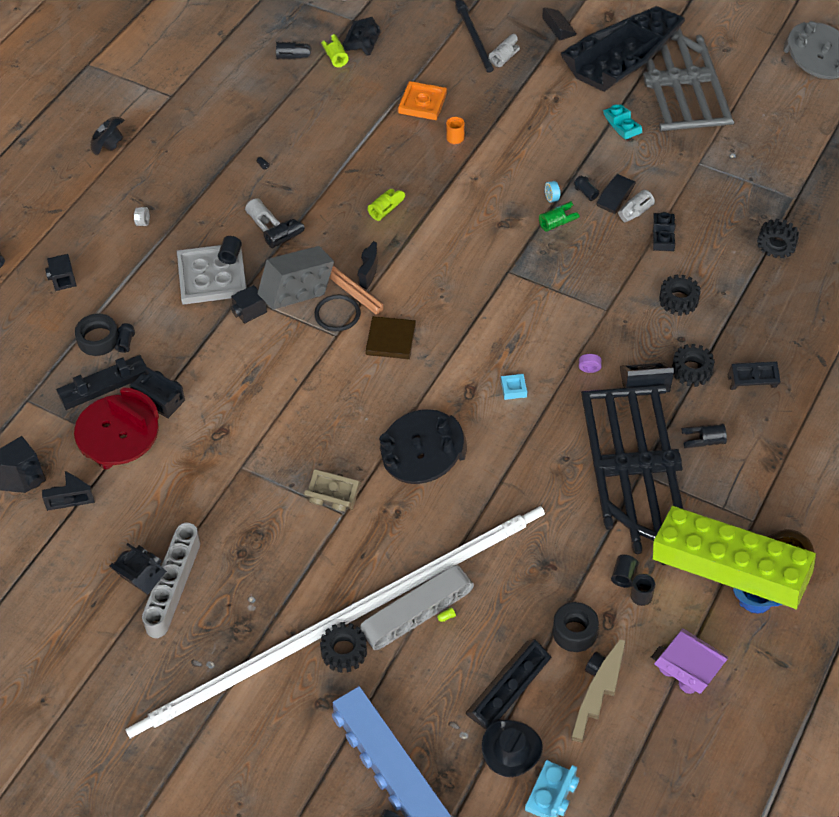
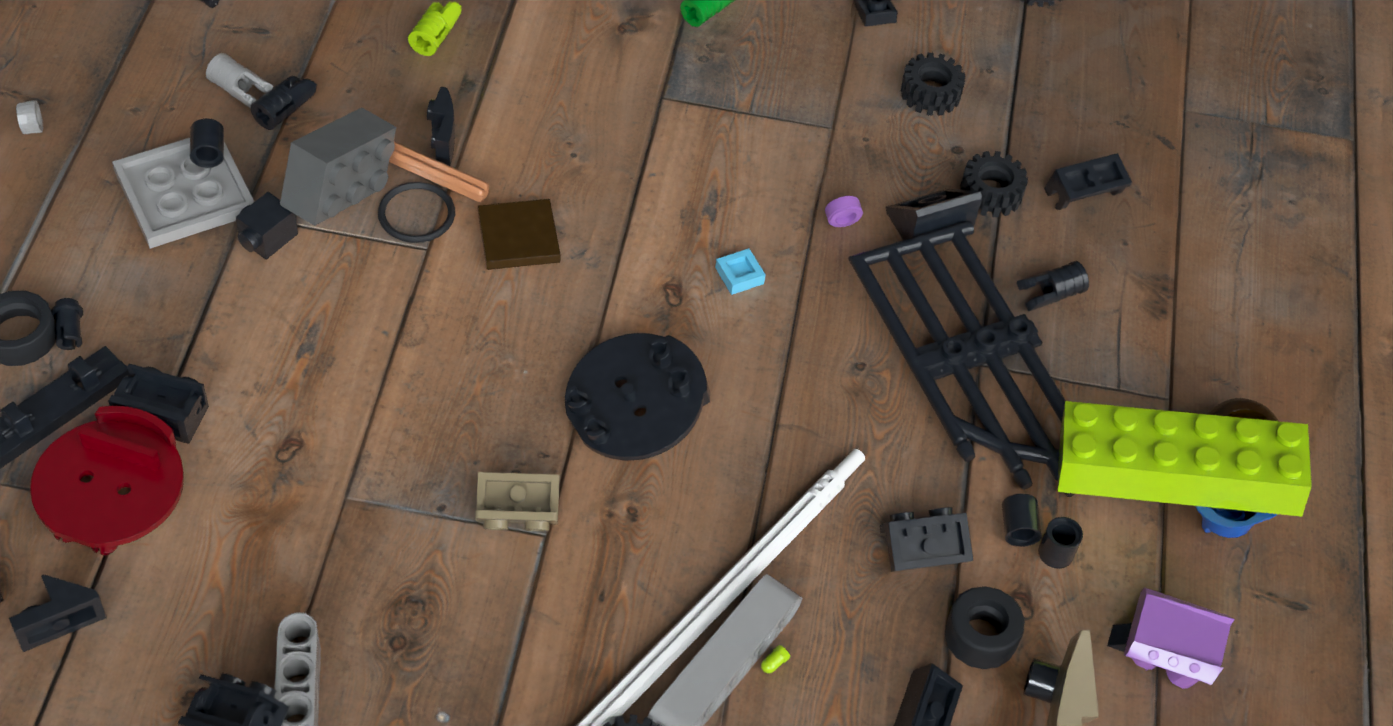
camera: 25 degrees left, 0 degrees up
(562, 569) = (927, 541): none -> black bracket

